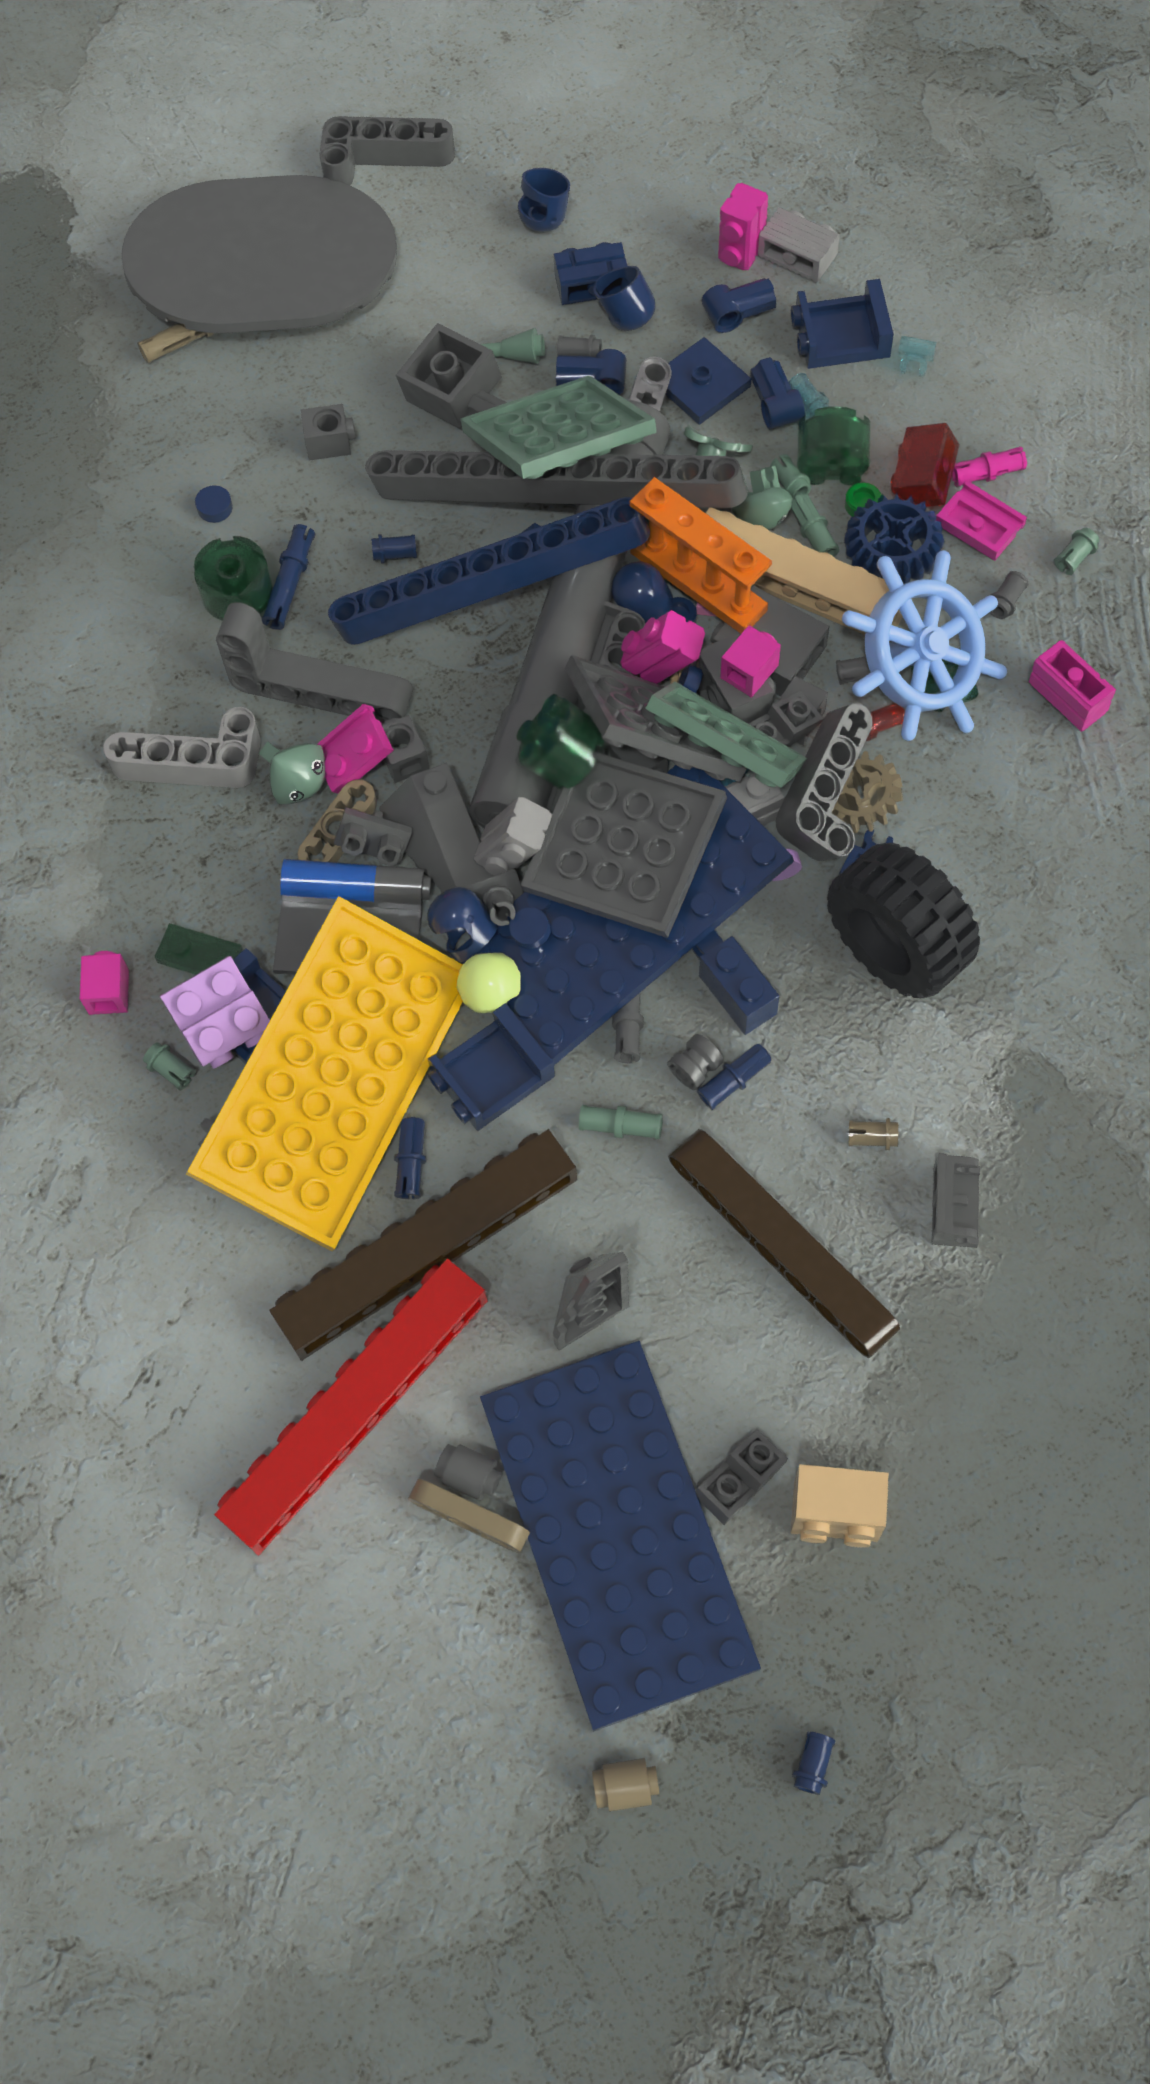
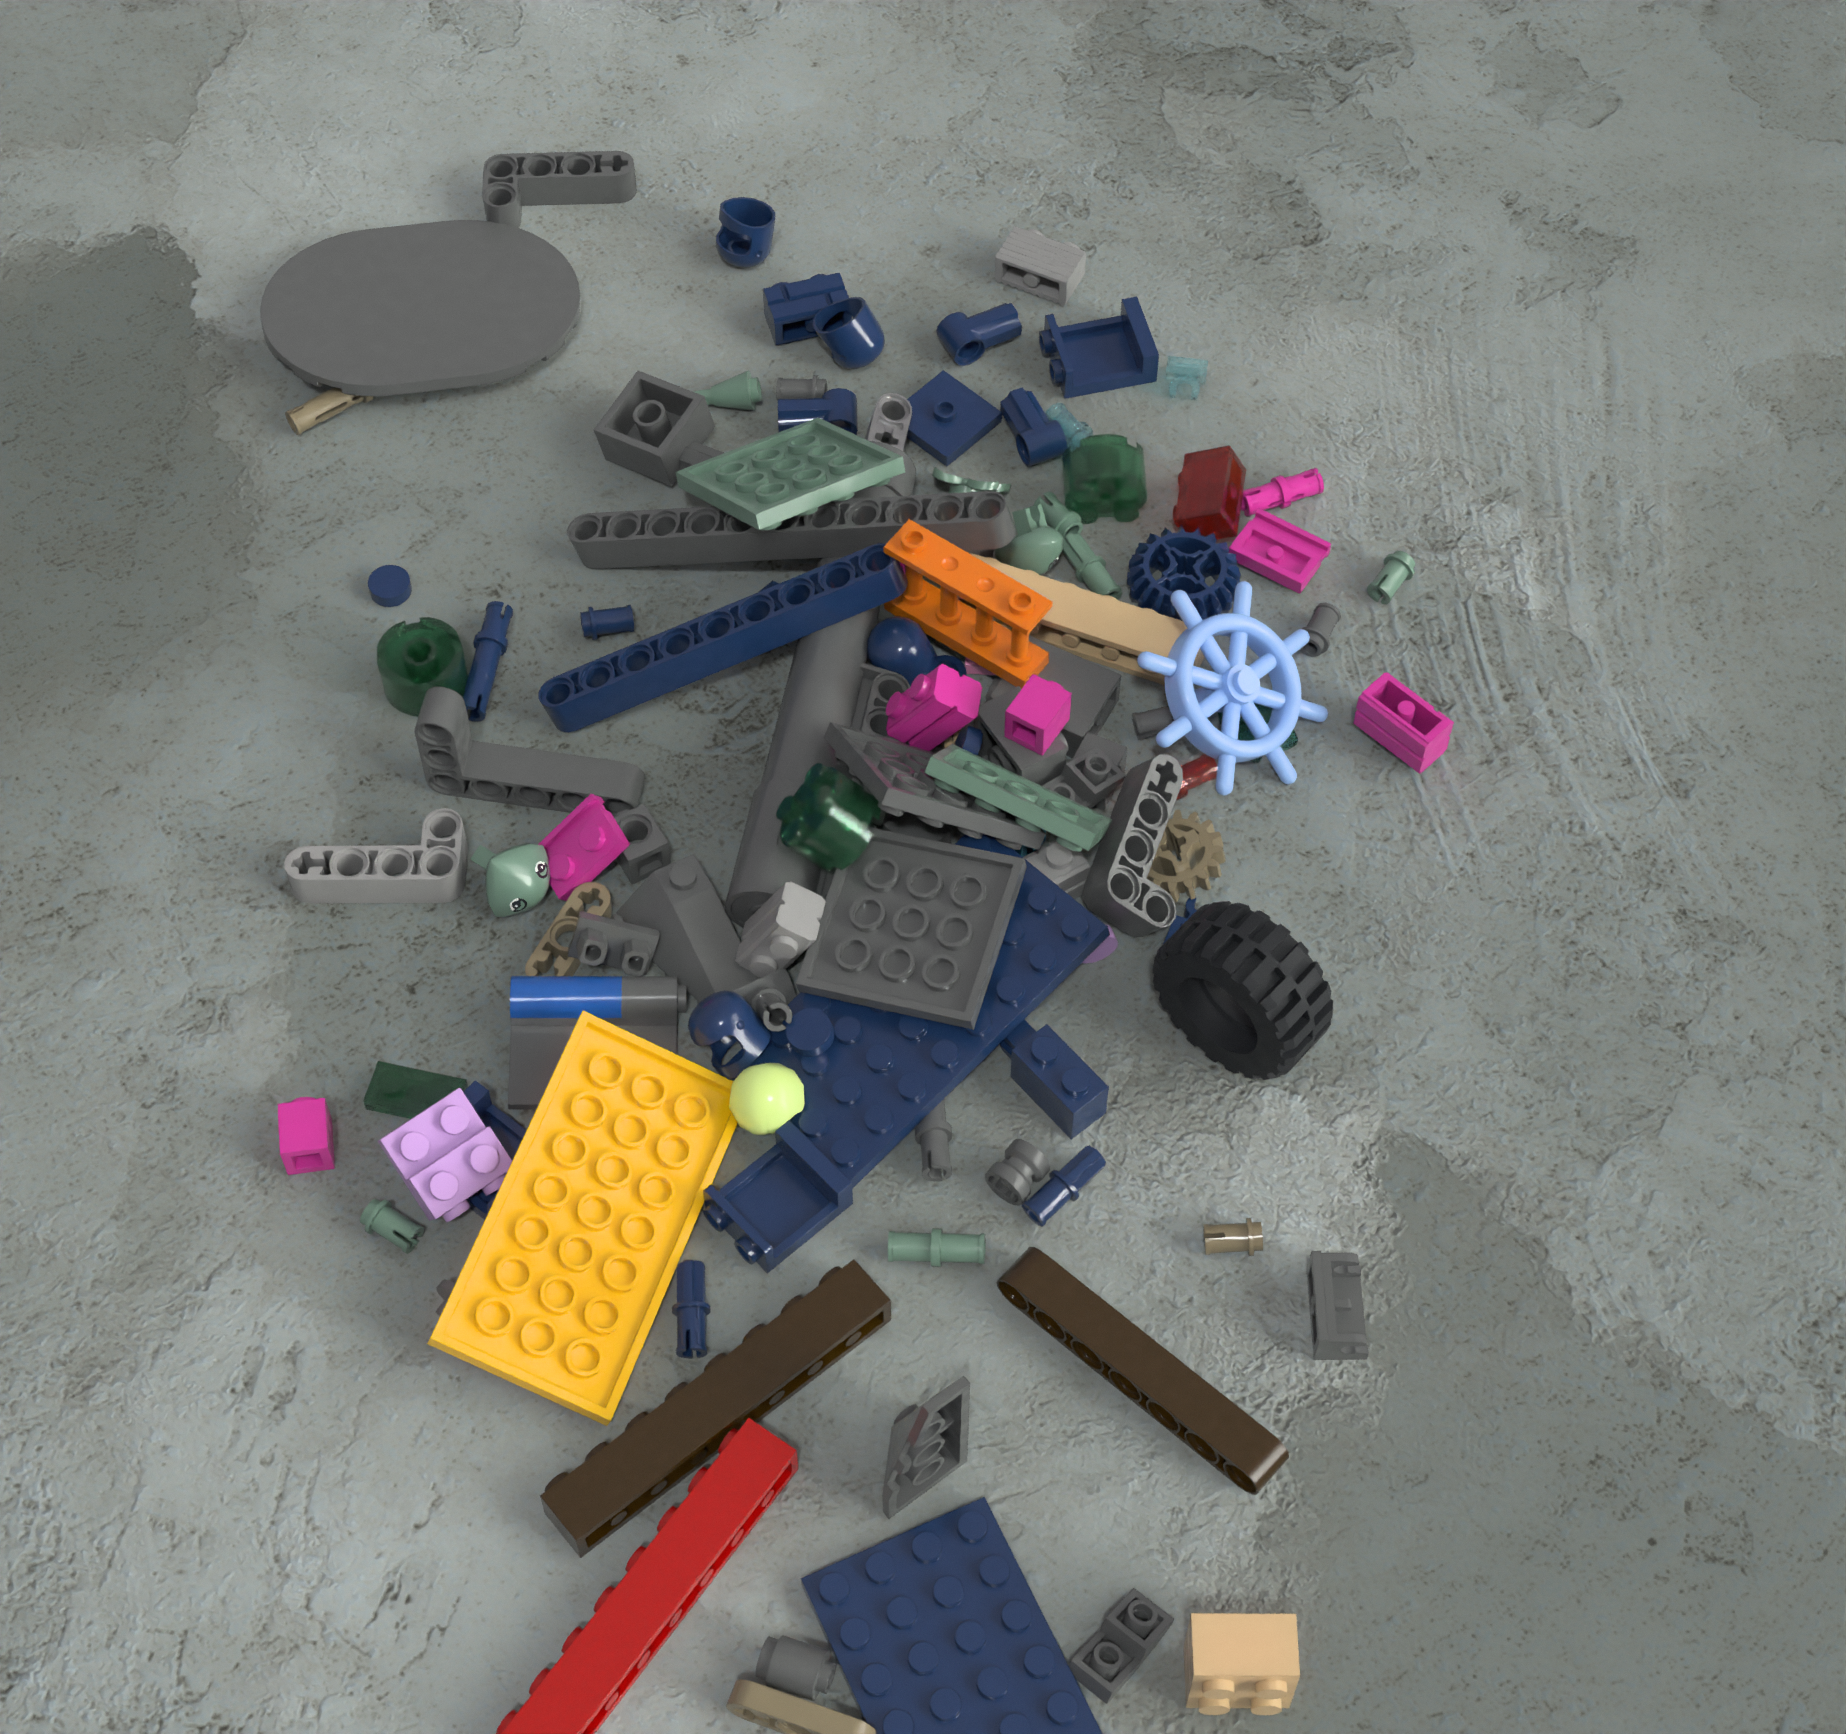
camera: 10 degrees left, 10 degrees down
(327, 431) = (517, 497): dark grey brick -> none
(740, 226) = (973, 248): dark pink brick -> none
(858, 495) = (1138, 532): green tile -> none

